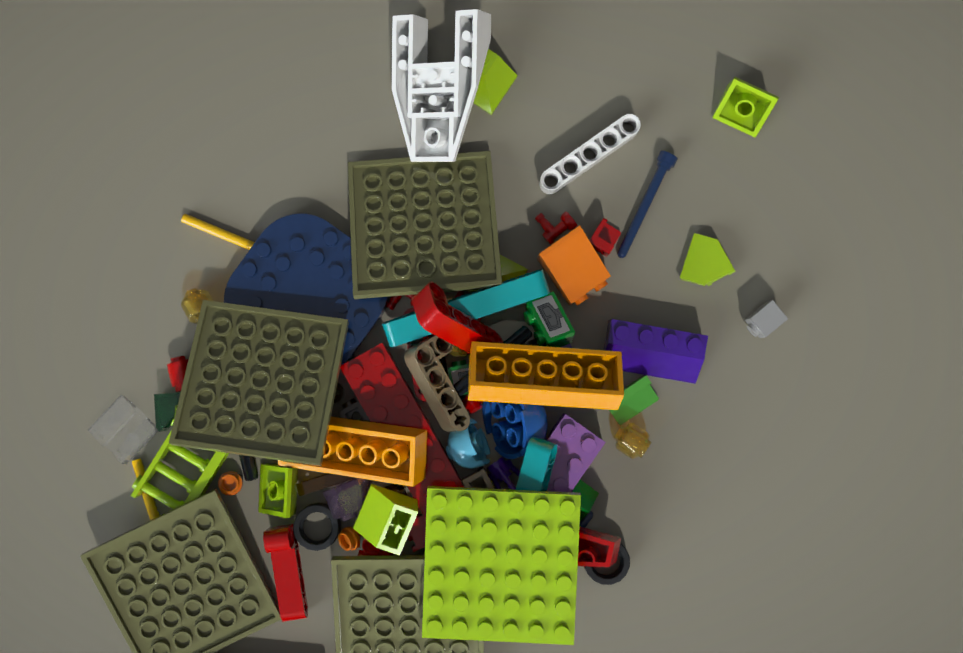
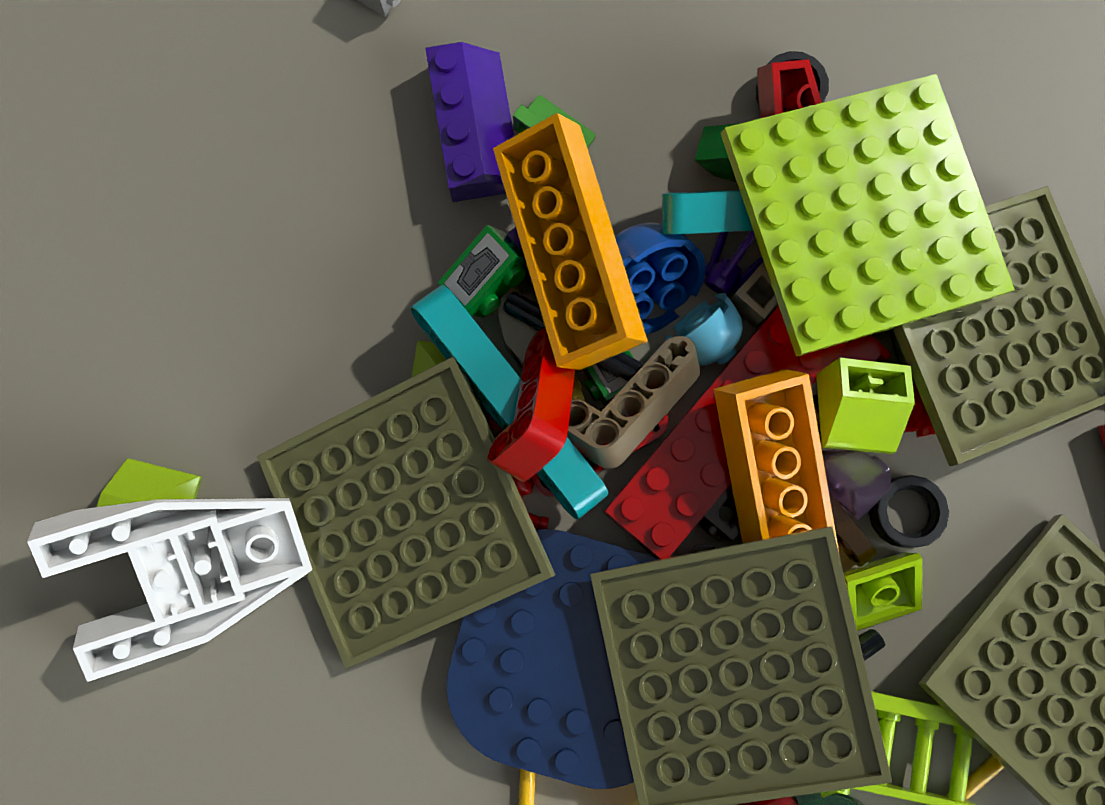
camera: 115 degrees left, 5 degrees down
(230, 483) = (897, 667): orange plate -> none
(287, 571) = (966, 545): red beam -> none
(349, 539) = (908, 458): orange plate -> none
(471, 406) = (644, 351): red plate -> none
(552, 232) = (326, 307): red piece -> none
(574, 266) = (389, 270): orange slope -> none
(574, 455) = (658, 170): medium lavender brick -> none
(595, 144) = (201, 296): white beam -> none
(604, 238) = (334, 246): red panel -> none
(632, 440) = (612, 106): clear yellow head -> none
(665, 163) = (191, 197): dark blue piece -> none
(705, 261) = (319, 93): lime slope -> none
(745, 106) = (70, 111): lime slope -> none

